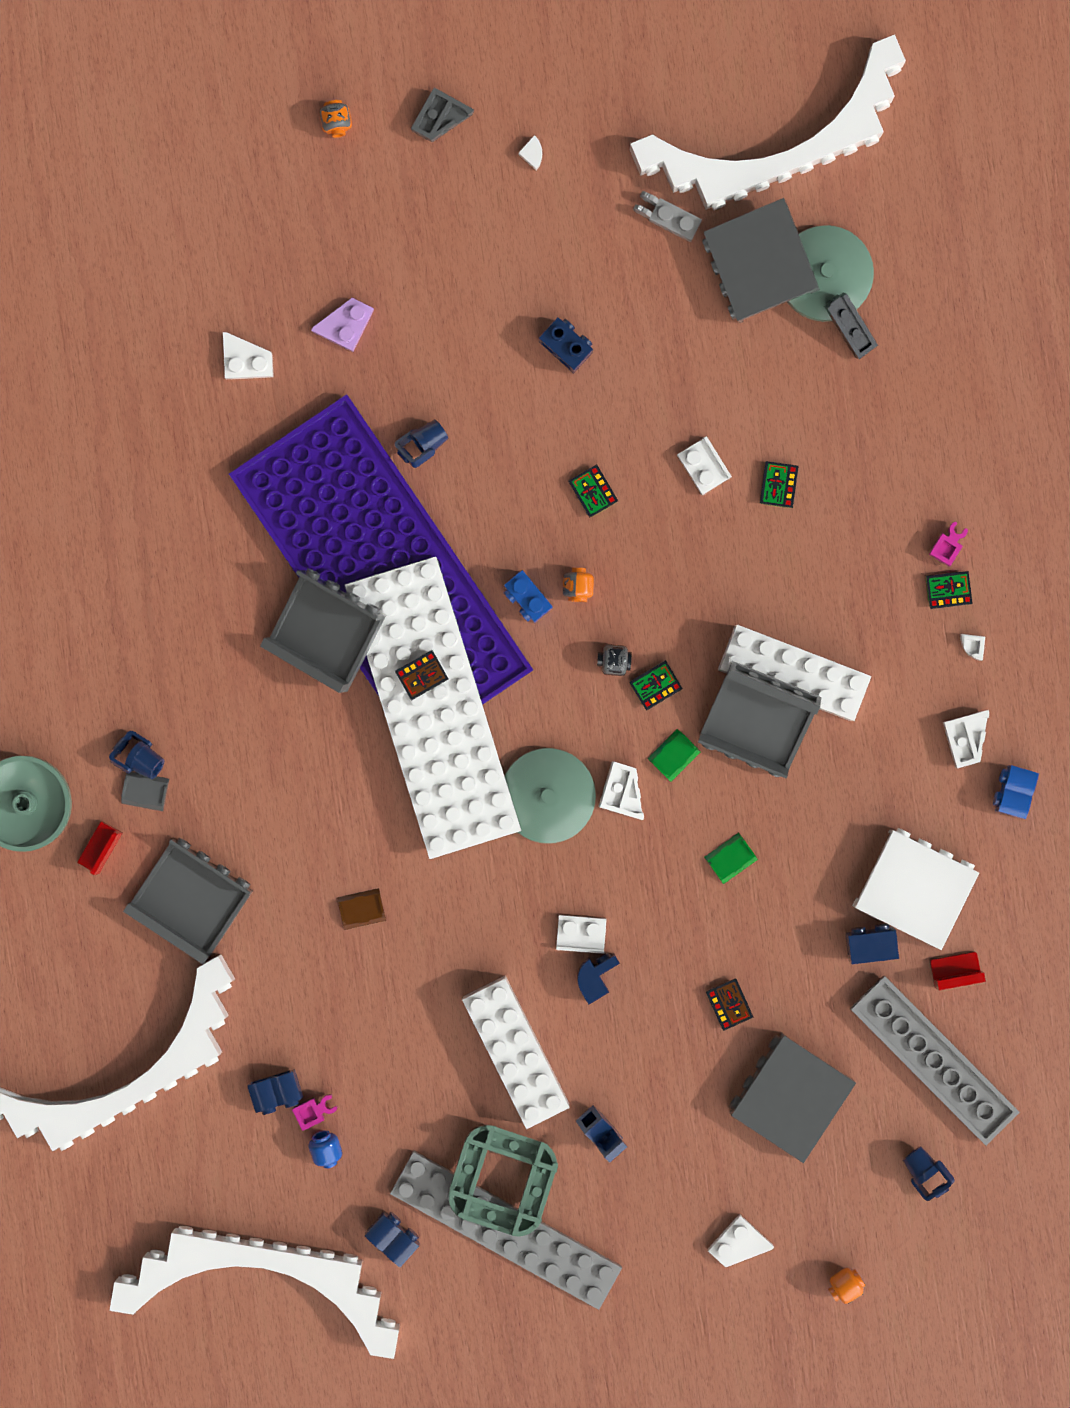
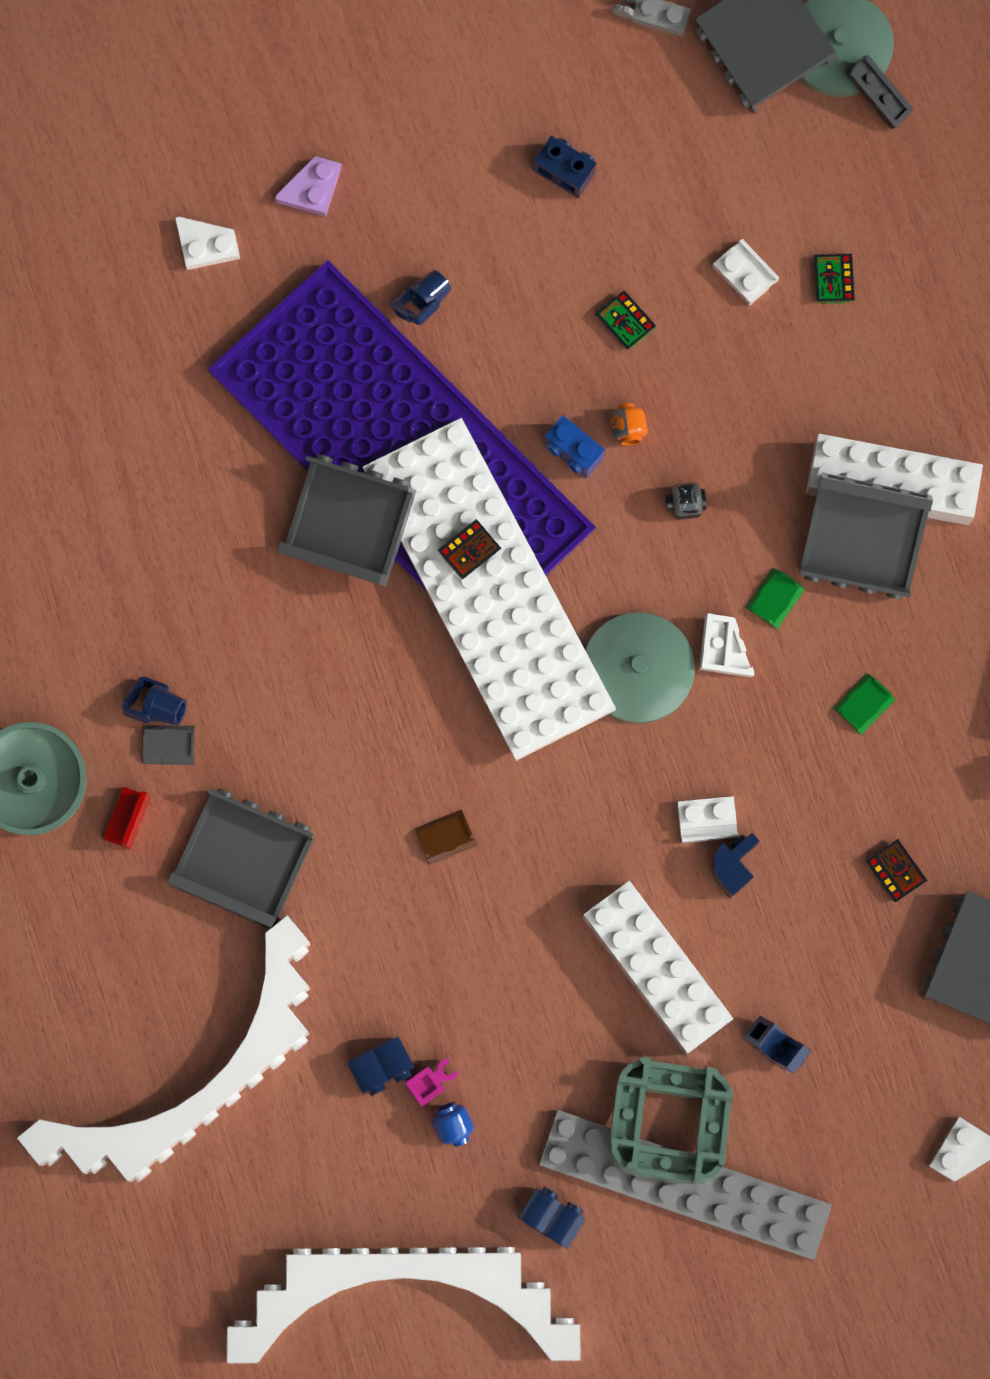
camera: 10 degrees left, 10 degrees down
(655, 685) = (738, 522): piece -> none

